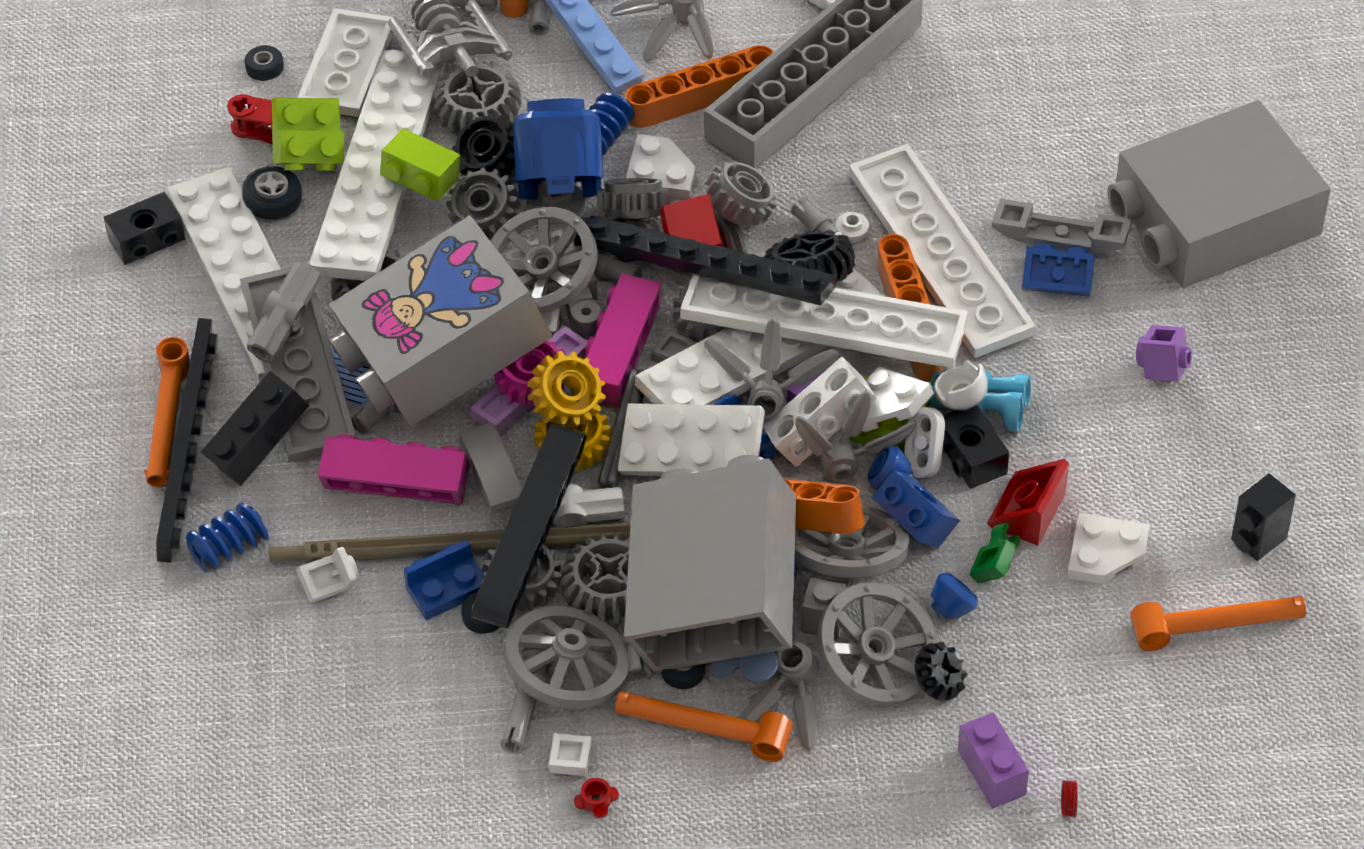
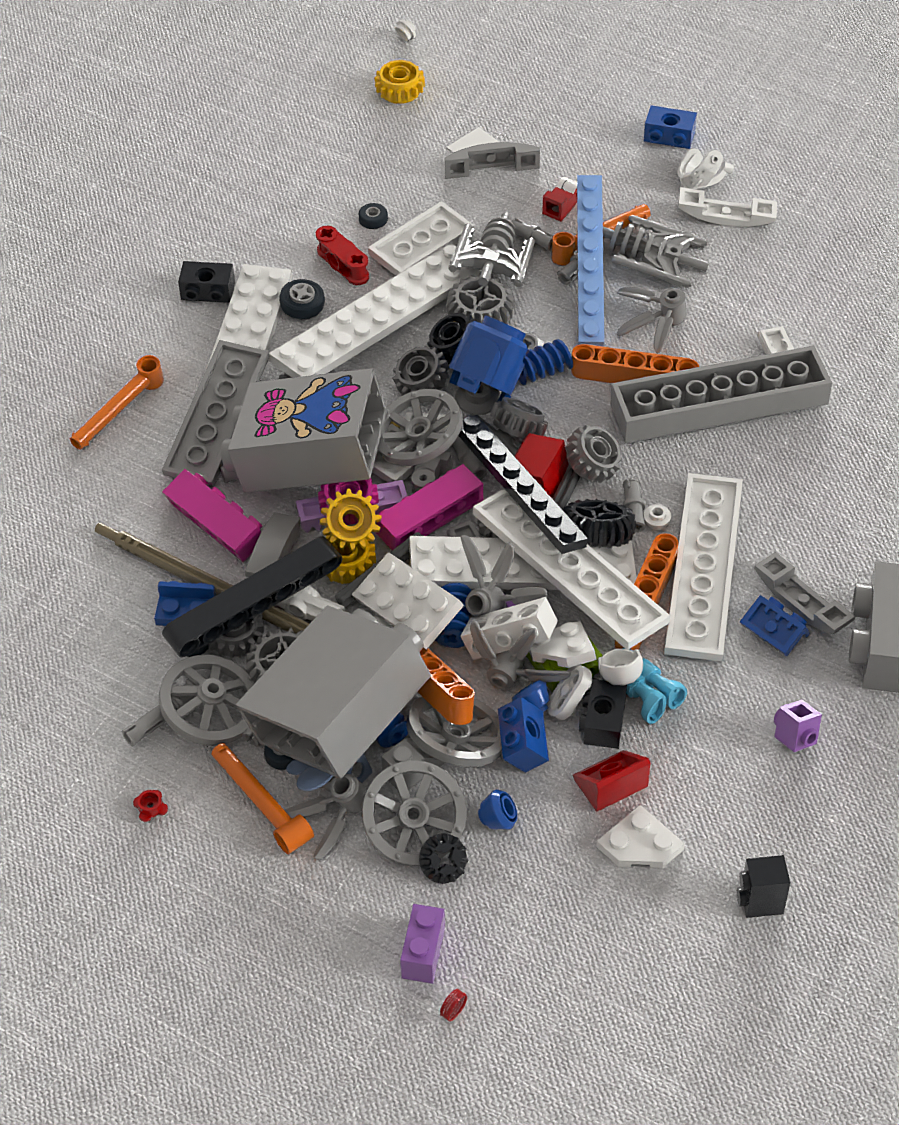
camera: 35 degrees right, 0 degrees up
(185, 449) = (107, 429): black plate -> none
(225, 535) = (80, 501): blue piece -> none
(255, 428) = (150, 440): black brick -> none
(284, 311) = (224, 374): light grey piece -> none
(307, 133) = (348, 270): lime plate -> none
(328, 575) = (115, 560): white bracket -> none
(419, 164) = (391, 324): lime brick -> none
(570, 754) = (158, 766): white plate -> none
(662, 160) = (563, 409): white plate -> none
(995, 558) = (550, 802): green plate -> none
(1155, 627) = (624, 918): orange piece -> none

